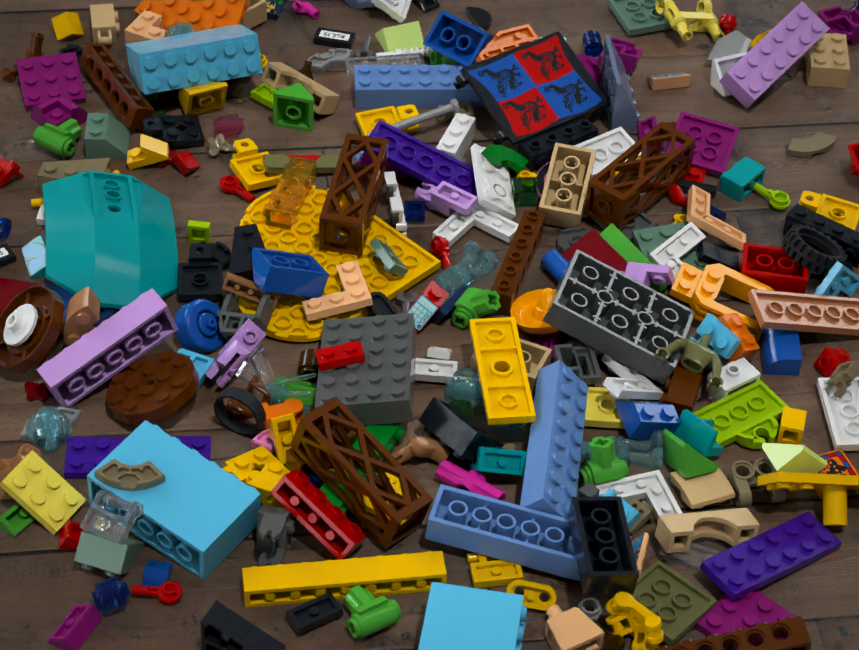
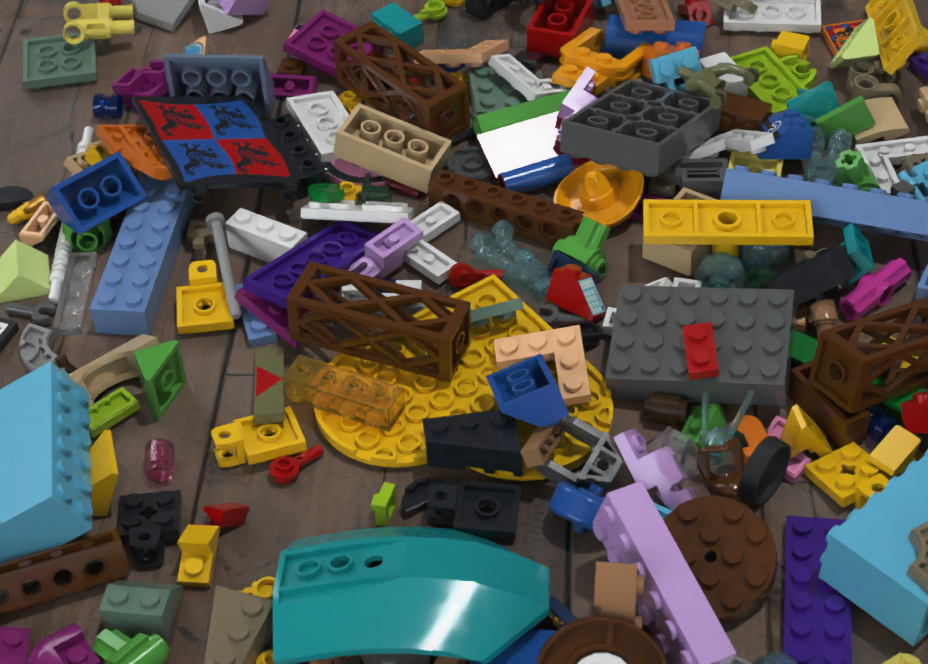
camera: 75 degrees left, 0 degrees up
(217, 144) = (196, 478): dark tan piece -> none

